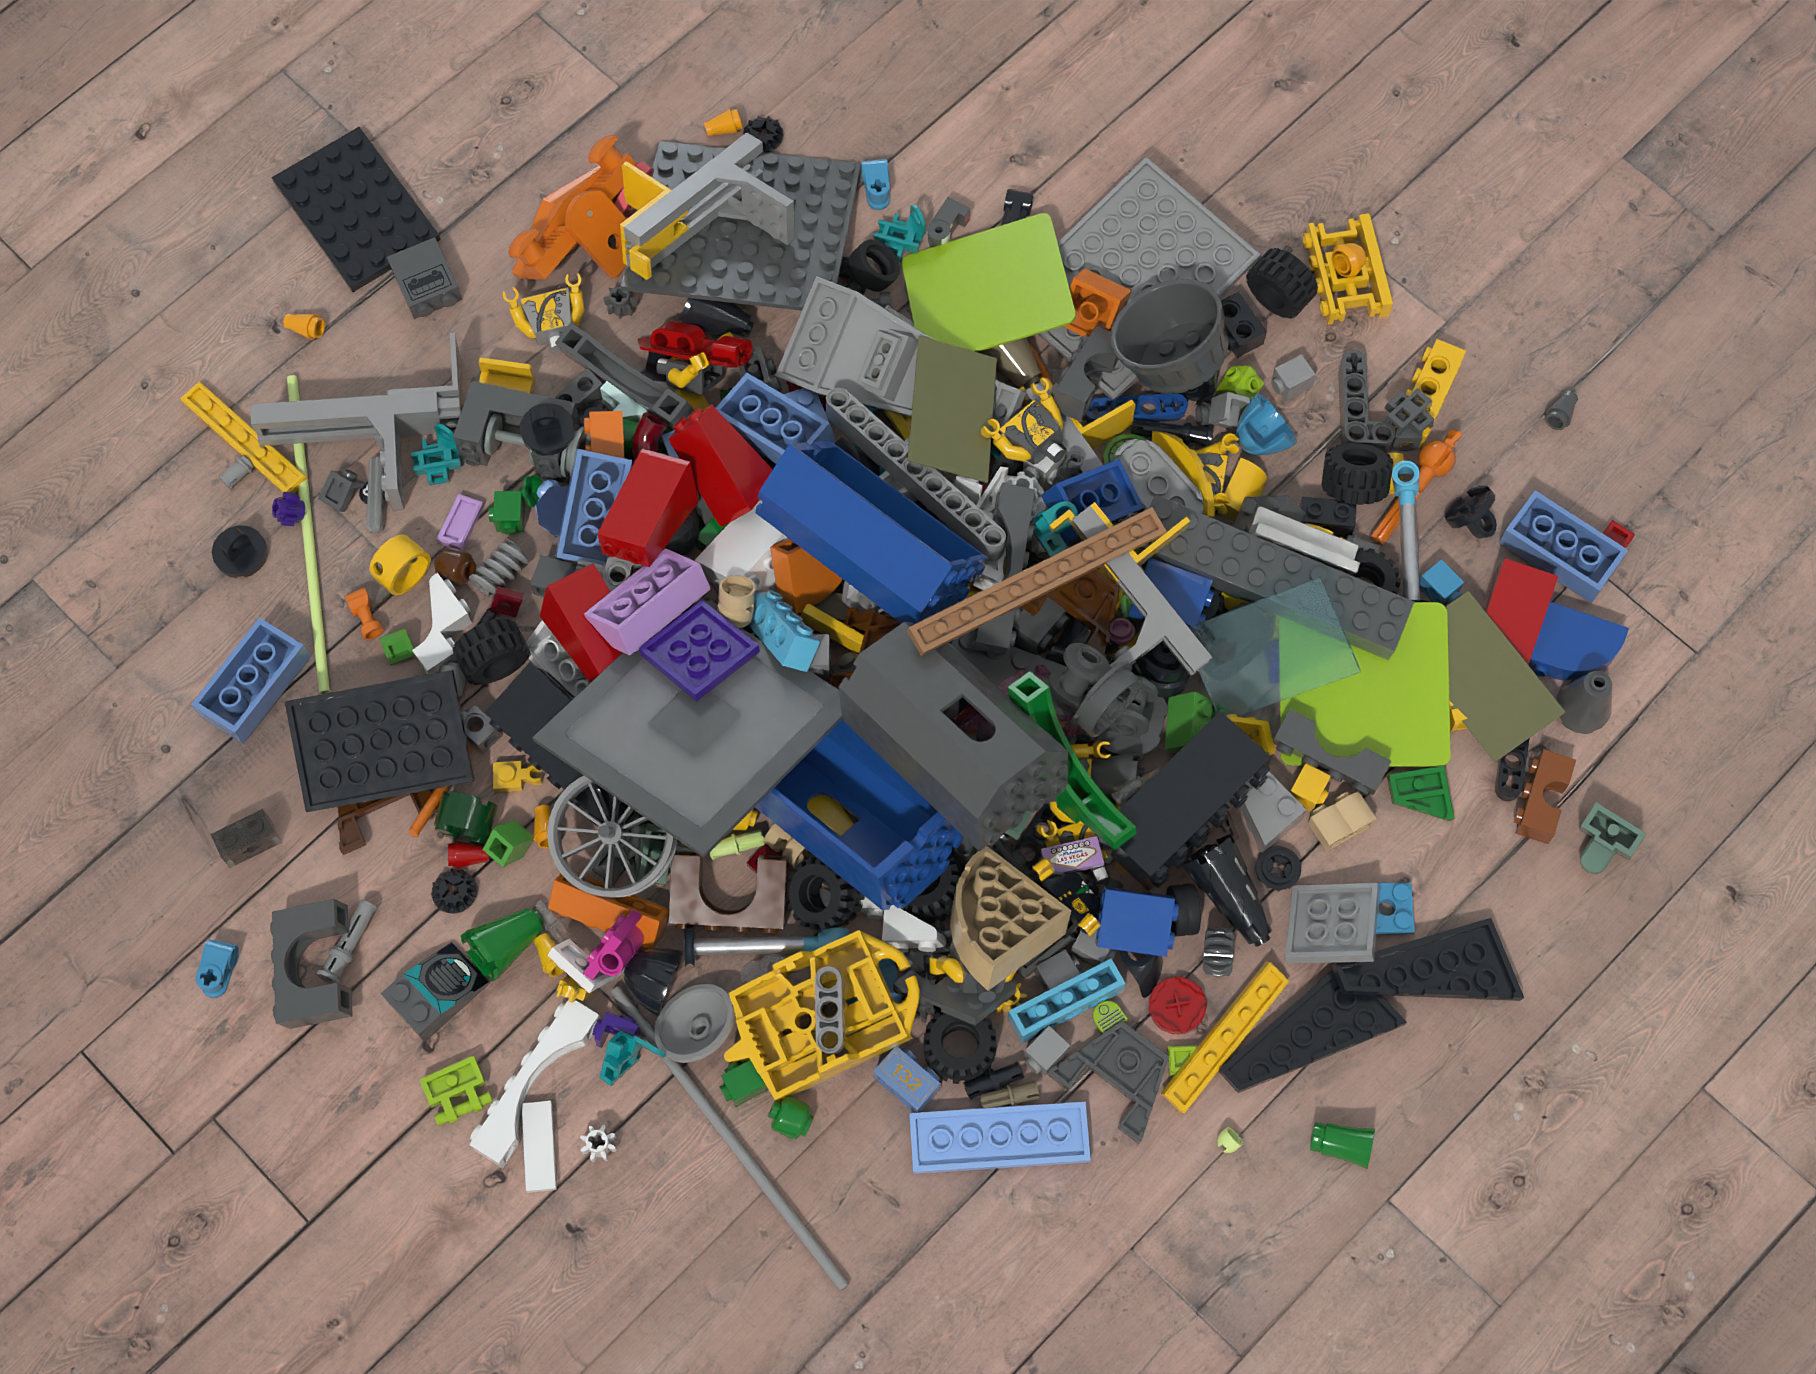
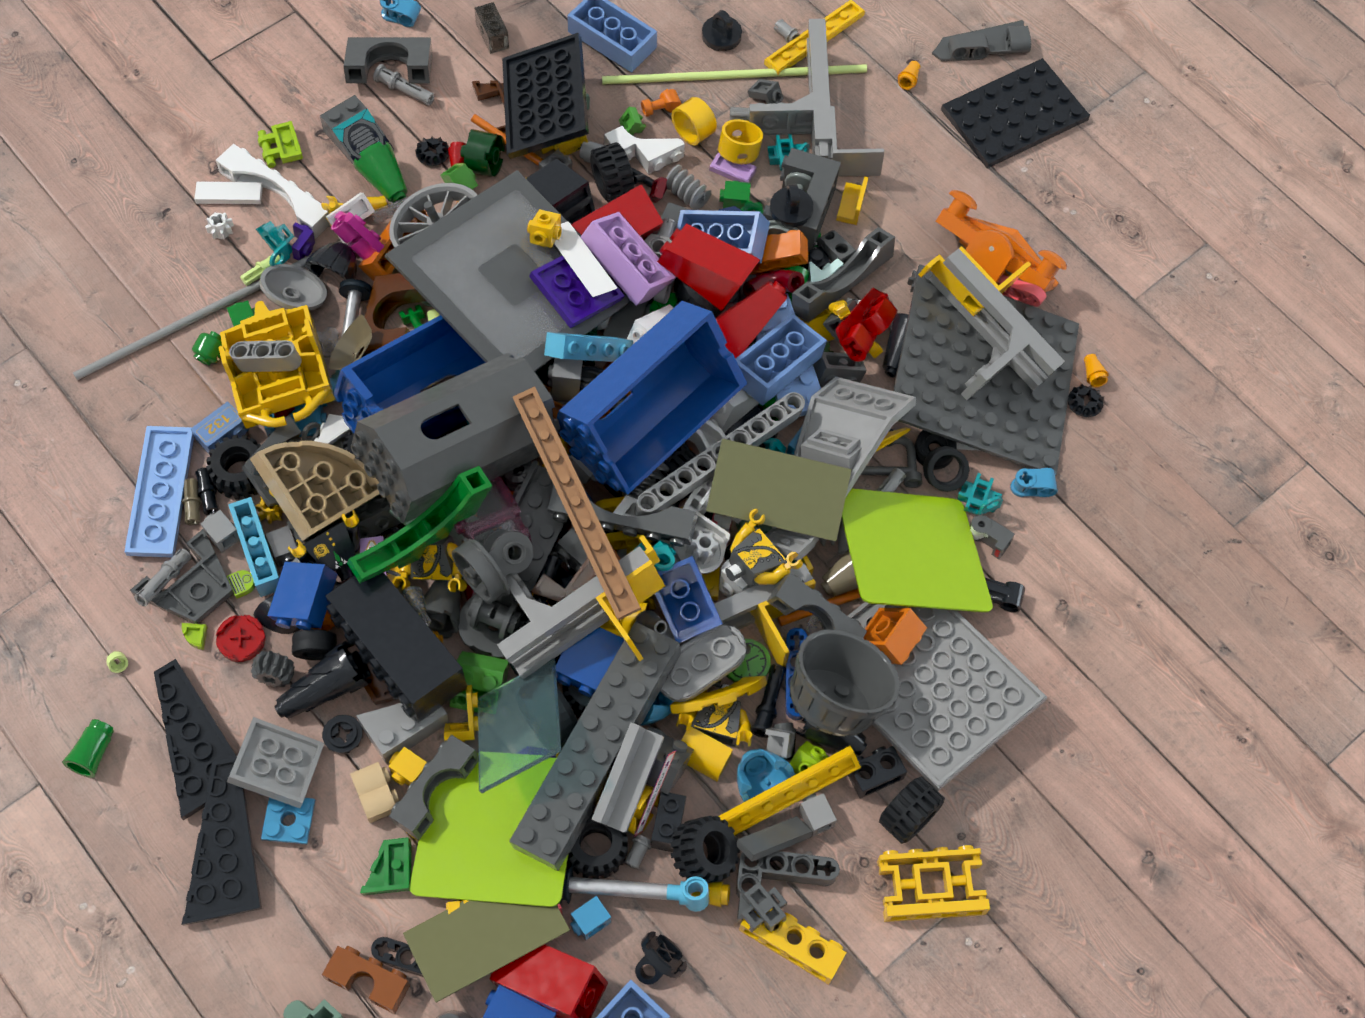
camera: 90 degrees right, 5 degrees down
(246, 242) = (978, 44): none -> dark grey panel
(288, 509) = (750, 58): dark purple gear -> none
(420, 497) = (747, 143): none -> yellow piece
(424, 278) = (947, 151): dark grey brick -> none
(455, 565) = (693, 159): reddish brown head -> none
(548, 313) = (911, 229): torso -> none
(629, 686) = (545, 228): none -> yellow brick
(662, 1076) = (255, 273): none -> yellowish green axle
(666, 644) = (583, 262): none -> white sticker
(737, 600) = (619, 317): tan wheel -> none
(747, 854) = (412, 317): none -> green hinge
(771, 926) = (352, 341): none -> dark tan piece
(1070, 467) = (719, 587): dark grey pin -> none
(1108, 1099) = (169, 570): none -> light grey pin
(1224, 1037) = (204, 670): yellow tile -> none
(1279, 399) = (791, 790): none -> yellow tile
(1300, 511) = (655, 793): none -> sticker
(1330, 412) = (774, 838): none -> dark grey tile
(1348, 259) = (937, 878): light orange cone -> none
(1435, 460) = (718, 932): orange piece -> none

